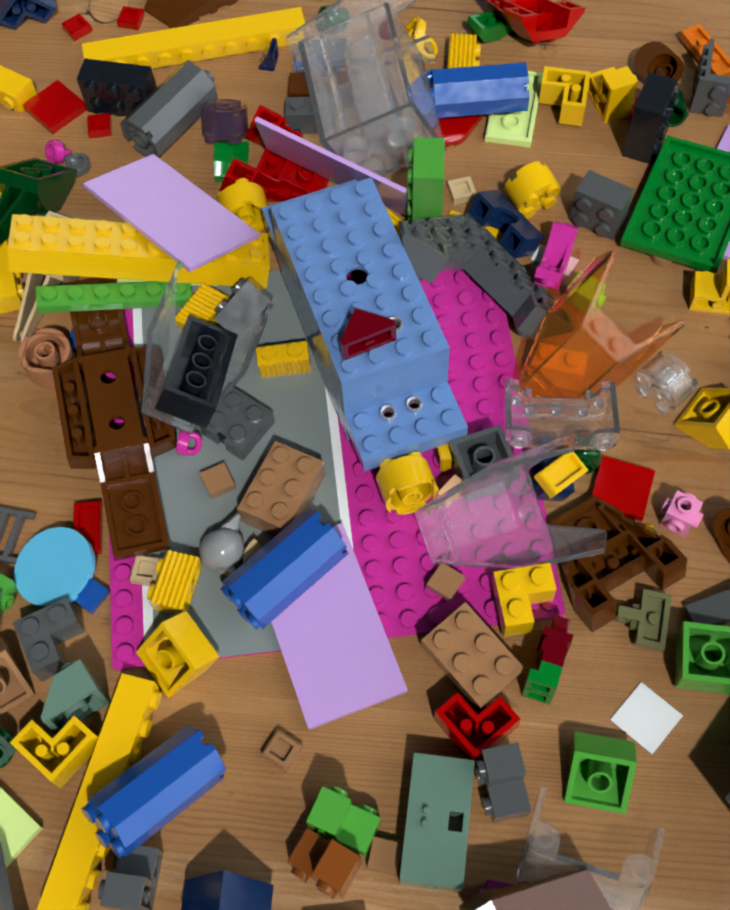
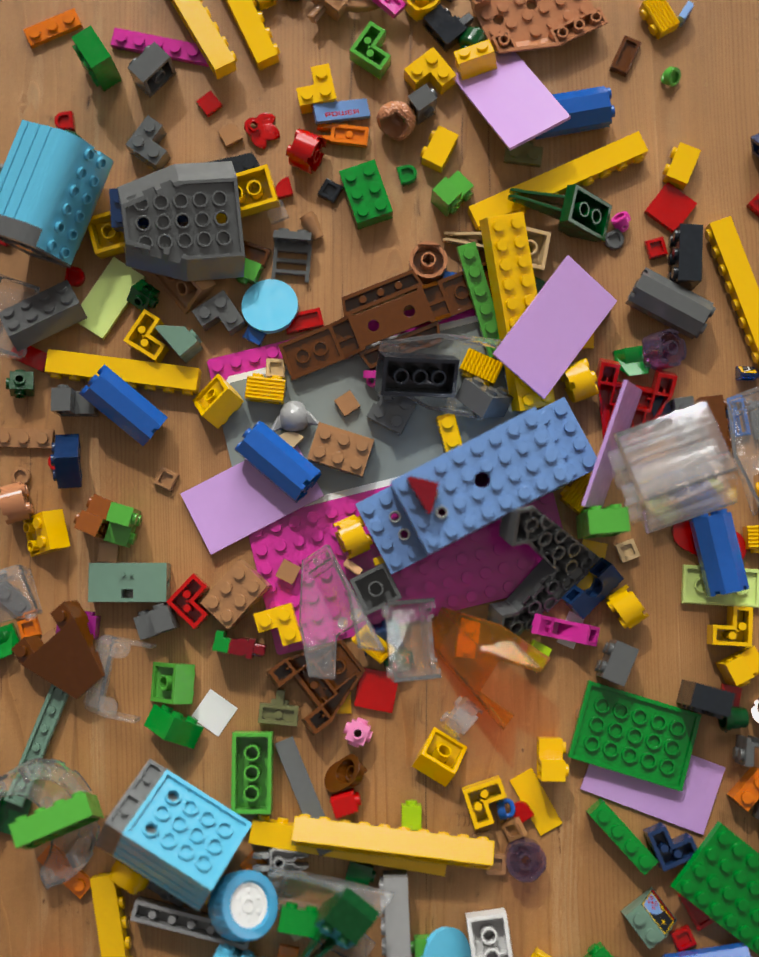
camera: 80 degrees right, 20 degrees up
(670, 773) = (173, 726): none -> green brick

